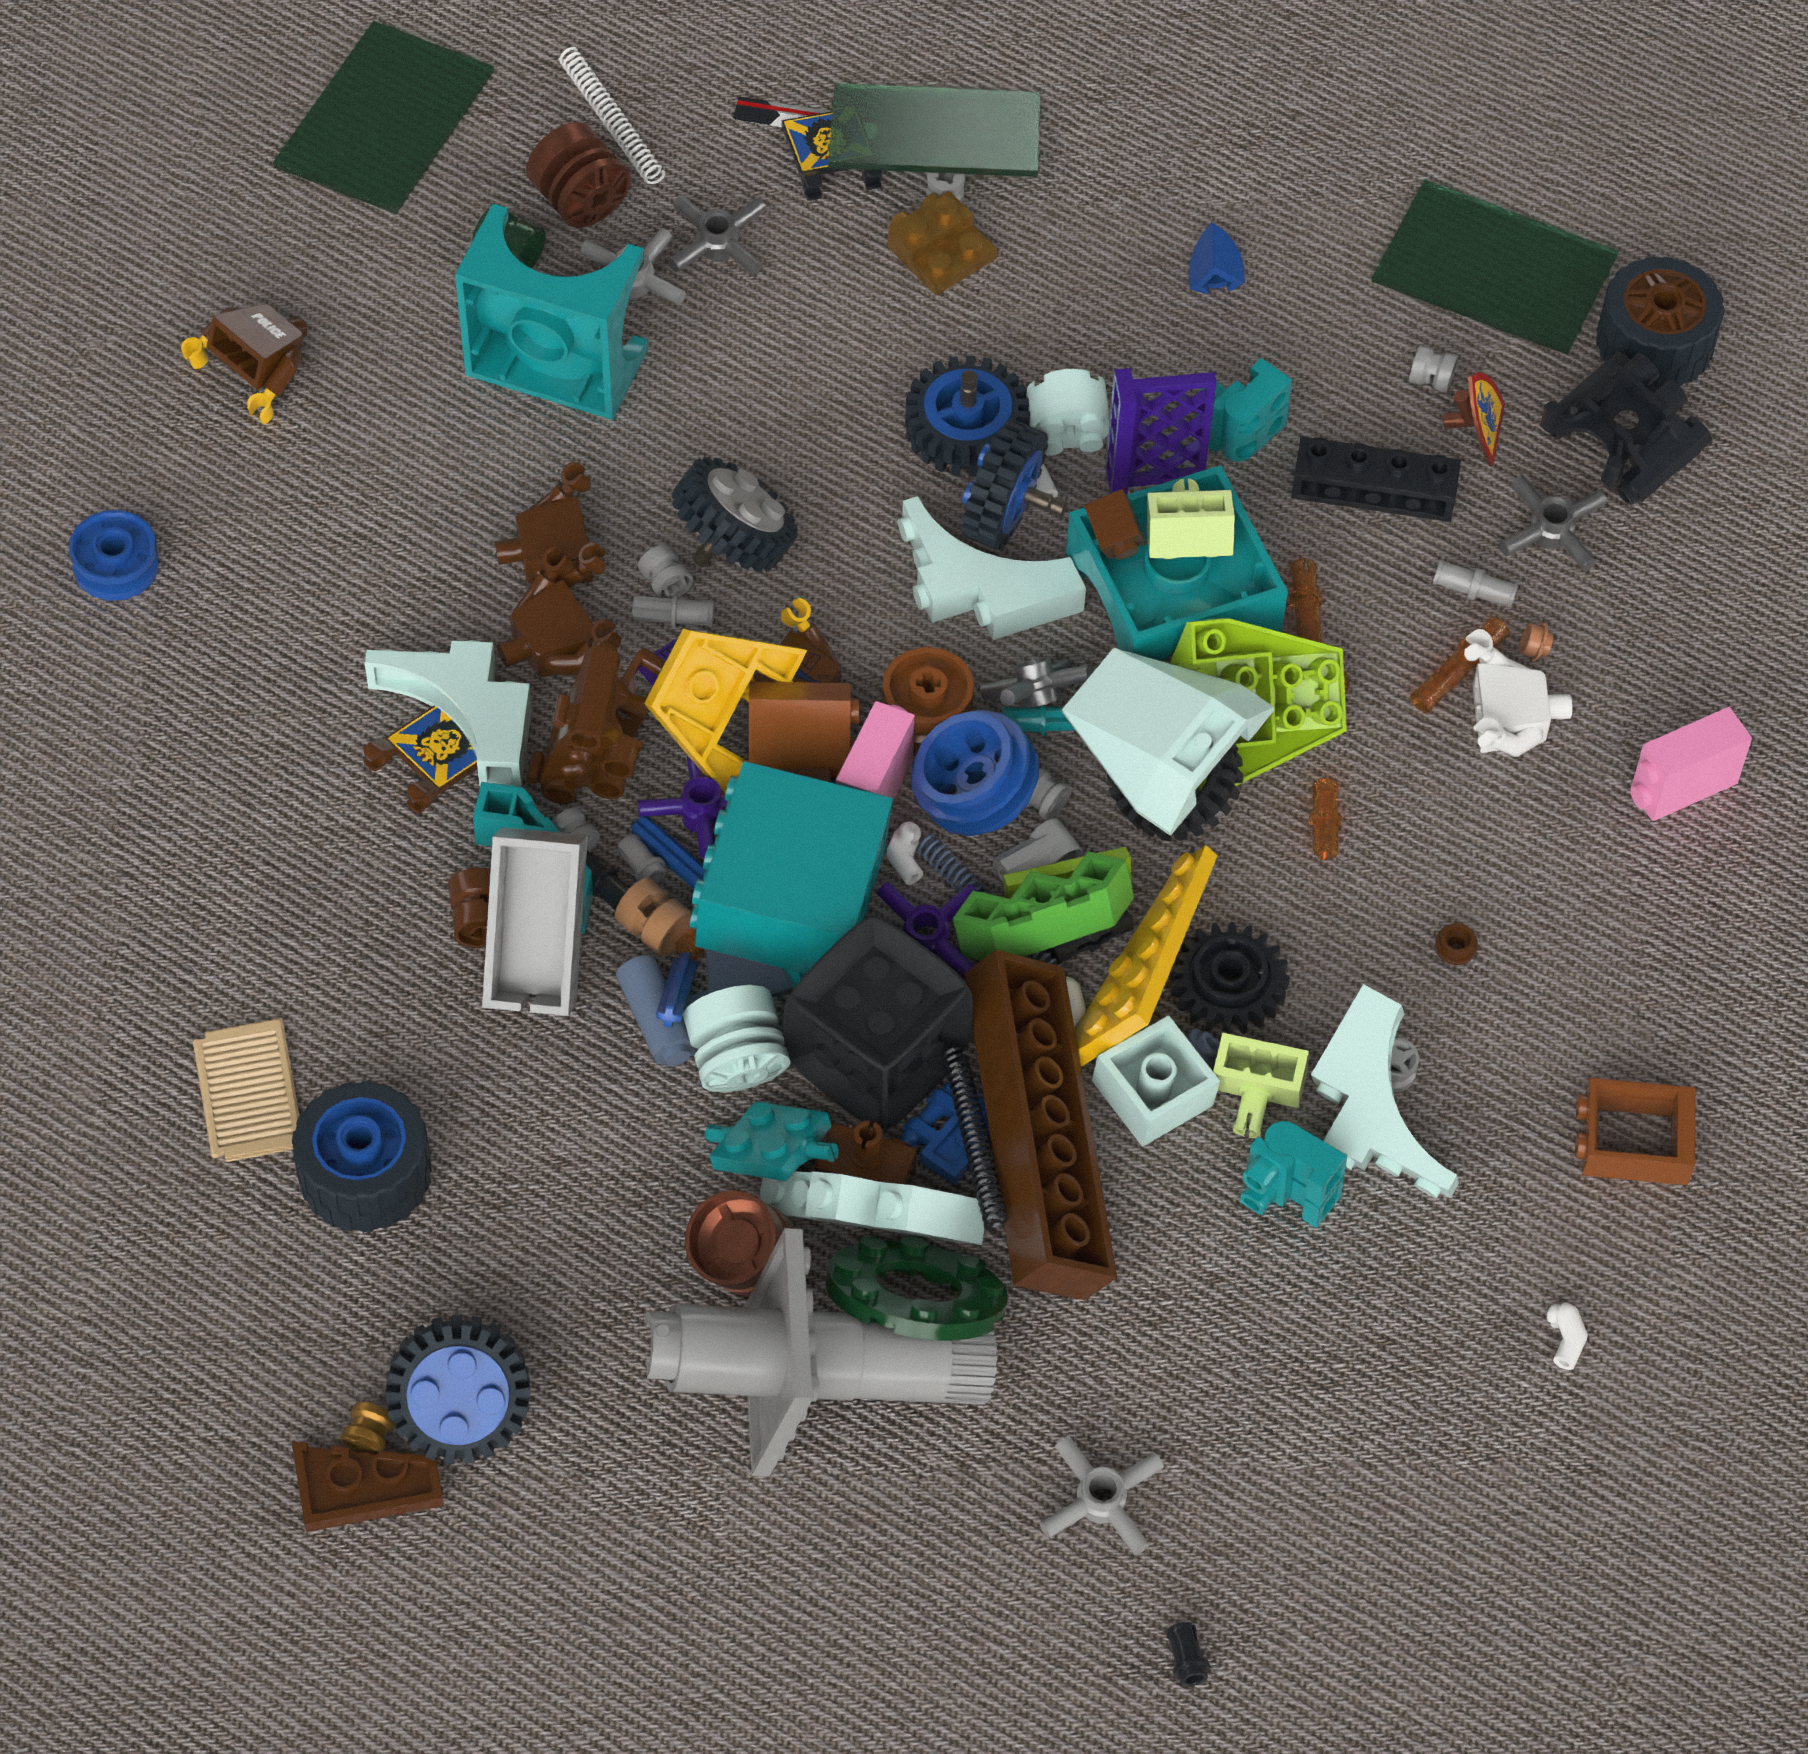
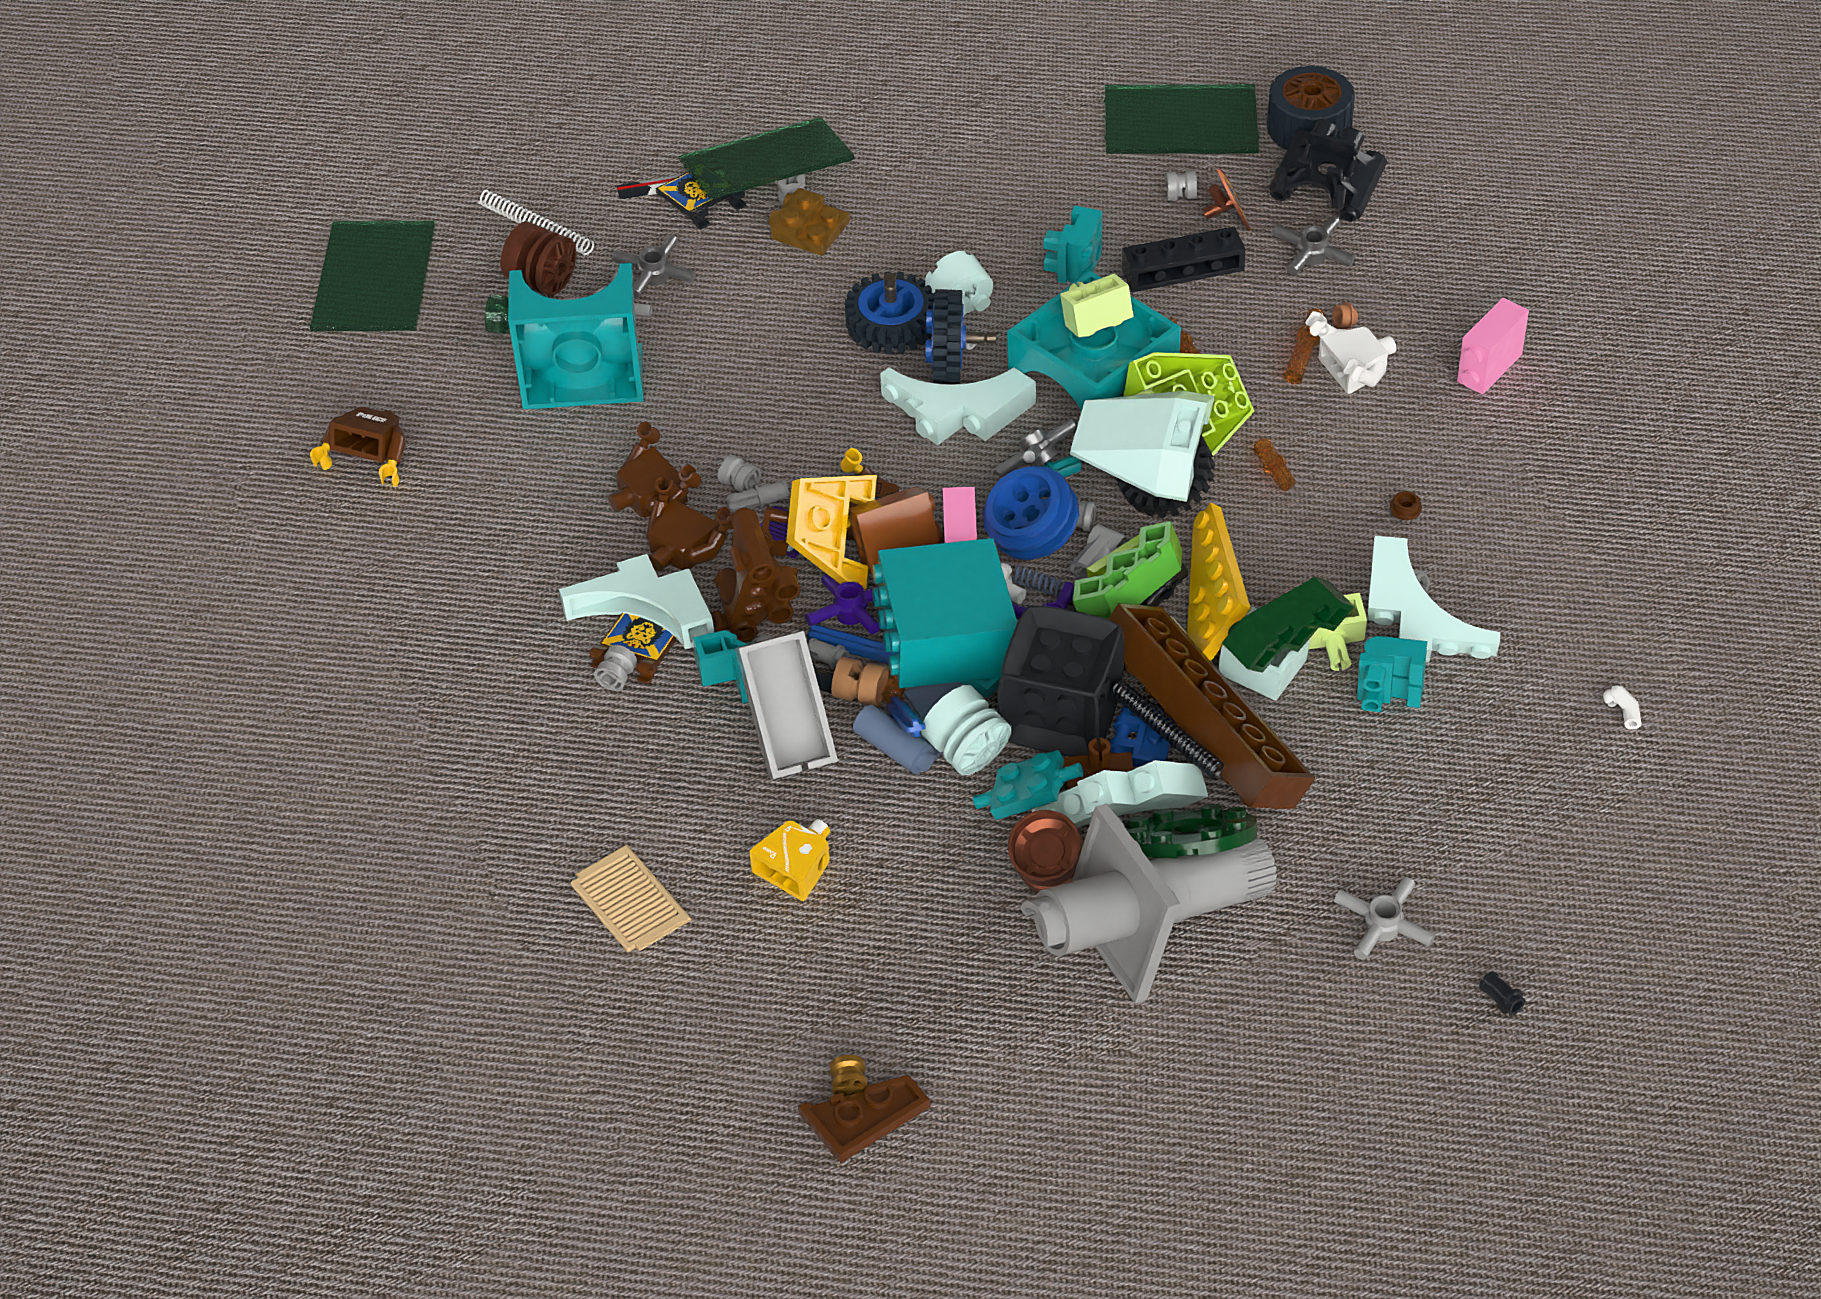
camera: 20 degrees left, 10 degrees down
(114, 555) = (335, 599): blue wheel -> none
(362, 1156) = (743, 903): black wheel -> none
(383, 780) = (616, 666): none -> light grey wheel
(458, 1389) = (905, 1018): wheel -> none
(460, 1117) = (793, 857): none -> yellow torso
(470, 906) = (730, 720): reddish brown wheel -> none
(733, 515) = (771, 419): black wheel -> none
(930, 686) = (967, 469): dark orange wheel -> none
(1116, 525) = (1046, 324): reddish brown brick -> none
(1129, 432) = (1012, 273): dark purple fence -> none
(1185, 1061) = (1286, 623): none -> dark green brick
(1215, 262) = (999, 173): blue brick -> none
(1258, 973) = (1272, 571): black gear -> none
(1475, 584) = (1285, 297): light grey pin -> none
(1644, 1099) = (1572, 552): dark orange window -> none

